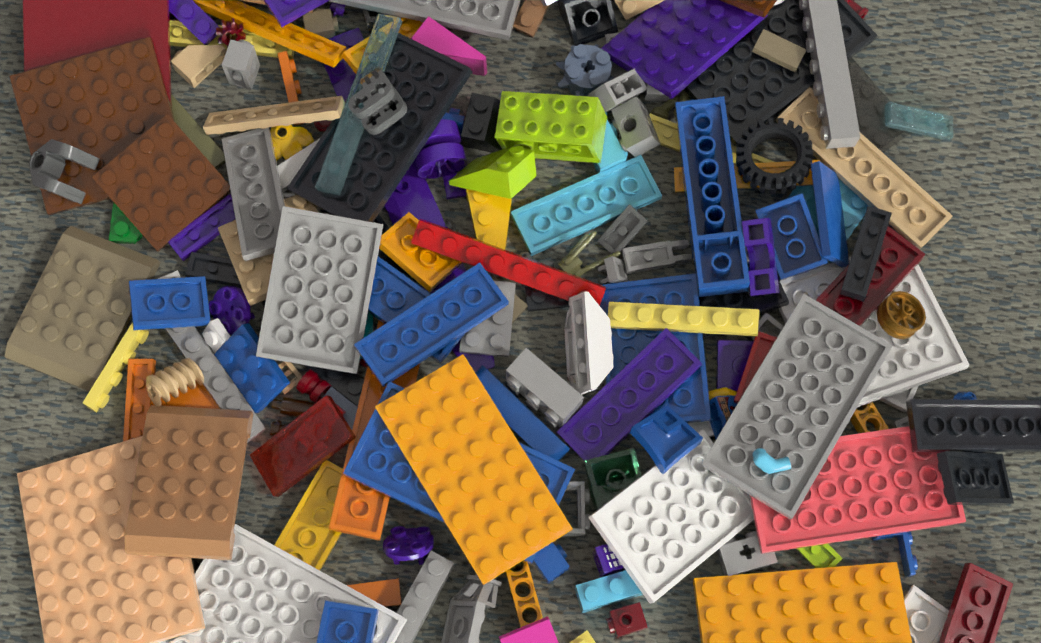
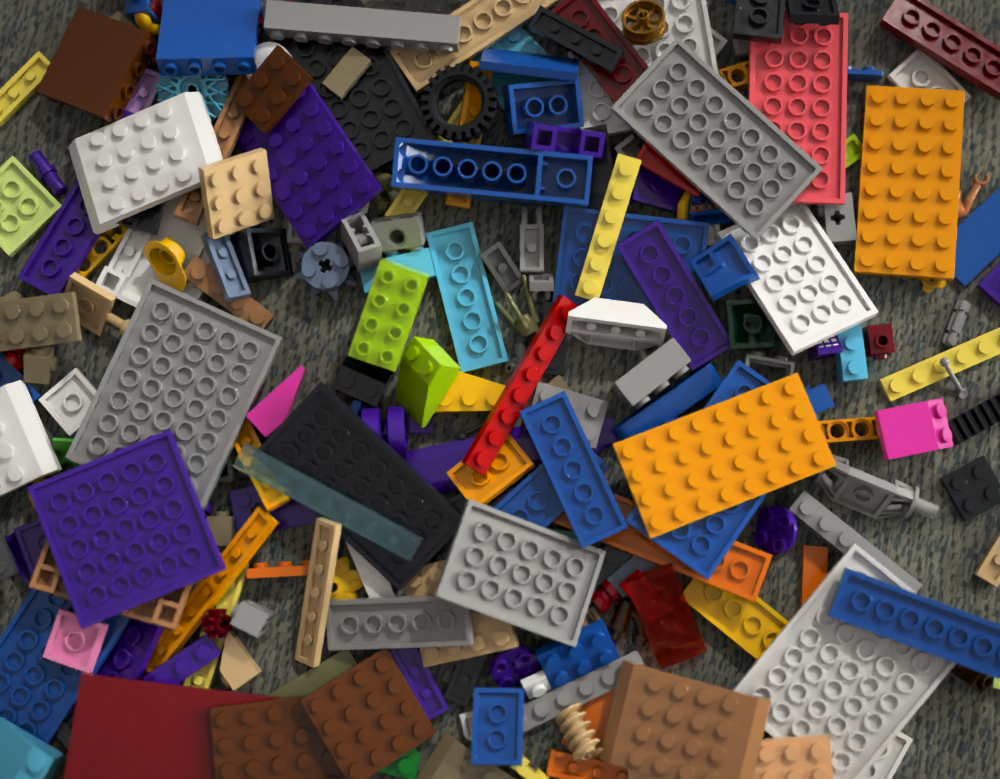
camera: 75 degrees left, 10 degrees up
(377, 98) = (334, 479): dark grey piece -> none
(768, 463) = (772, 176): medium azure arm -> none

